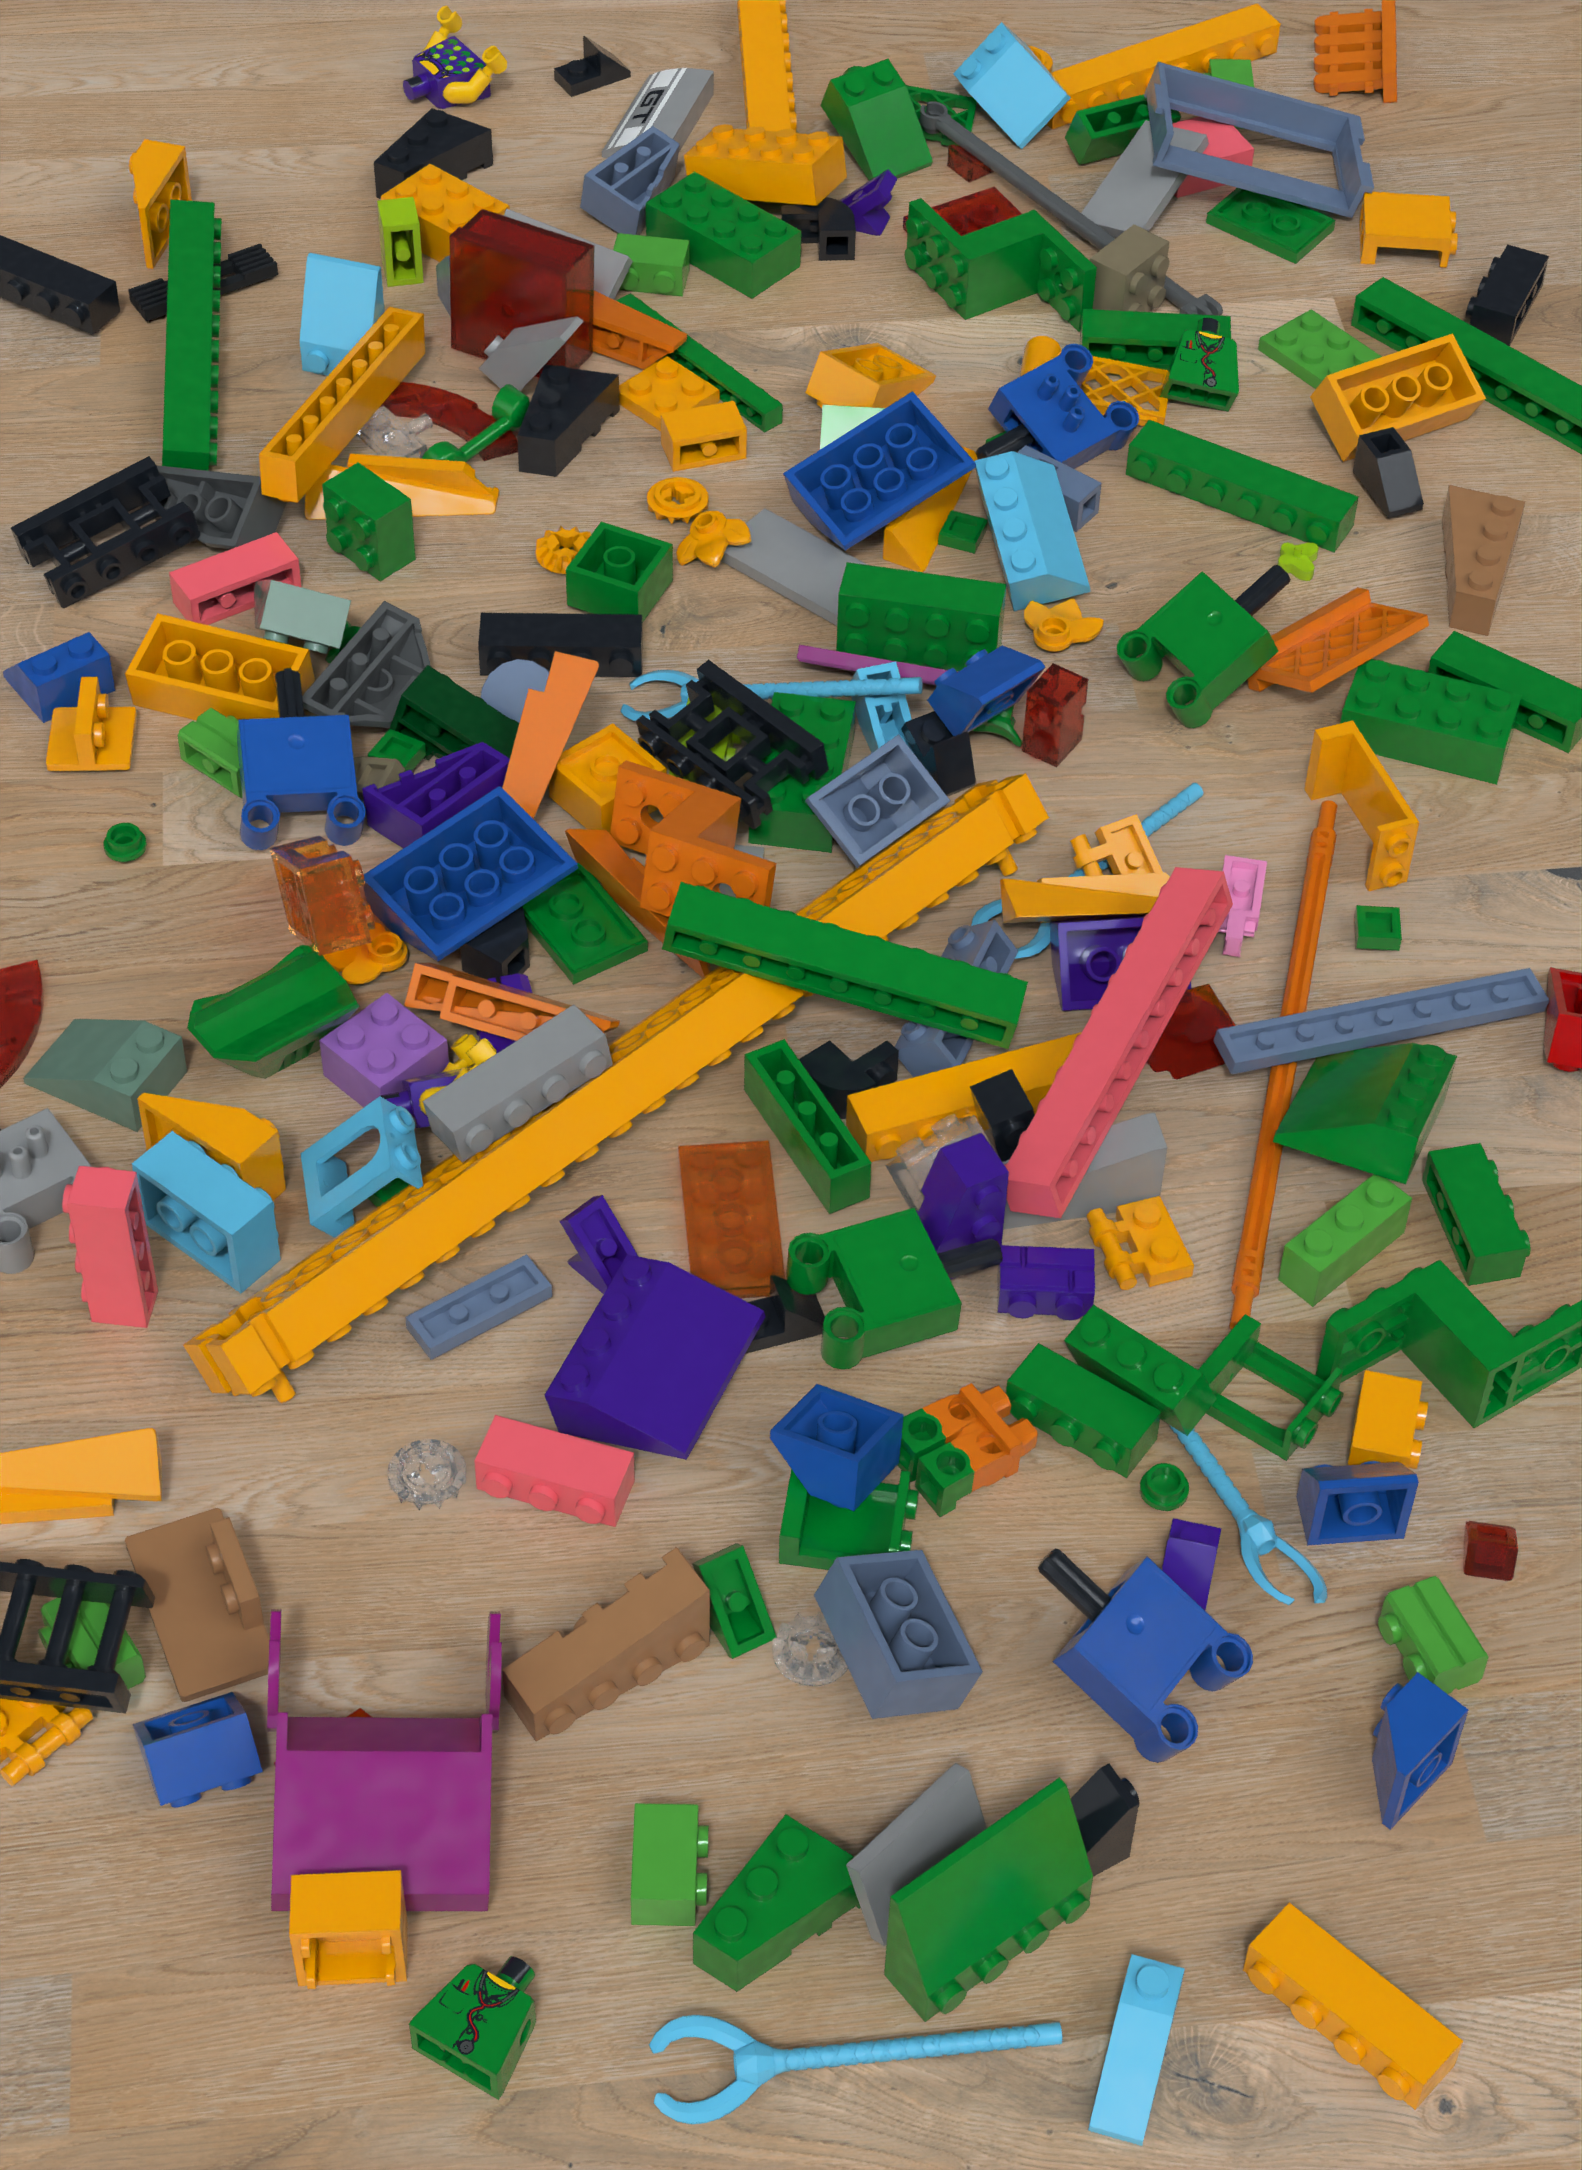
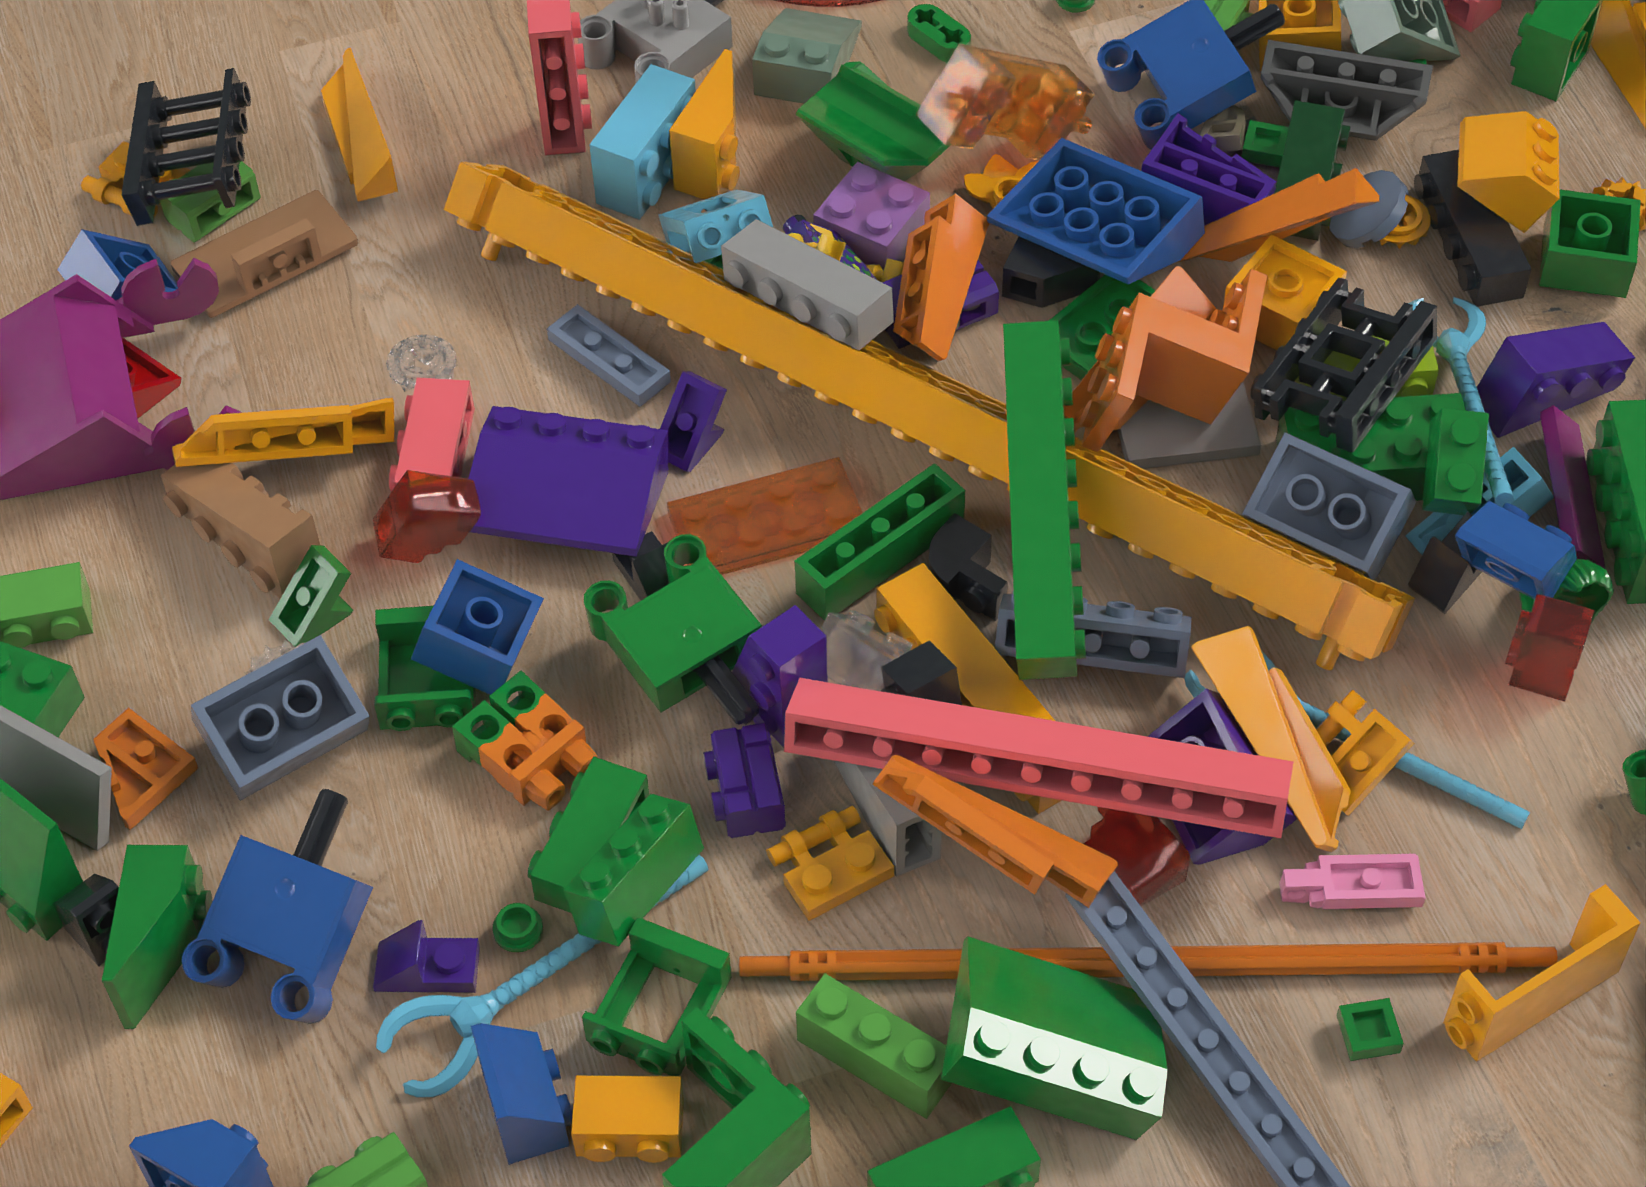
camera: 80 degrees right, 5 degrees up
(126, 960) = (935, 36): none -> green beam
(521, 1584) = (287, 433): none -> light orange wedge
(523, 586) = (1510, 165): none -> light orange slope
(662, 1440) = (425, 515): none -> clear red piece
(757, 634) = (1550, 369): none -> dark purple wedge
(867, 703) = (1455, 461): none -> green brick
(888, 1781) = (143, 765): none -> orange wing
(1170, 1784) = (153, 922): none -> green slope
(1193, 1079) = (998, 834): none -> orange wedge

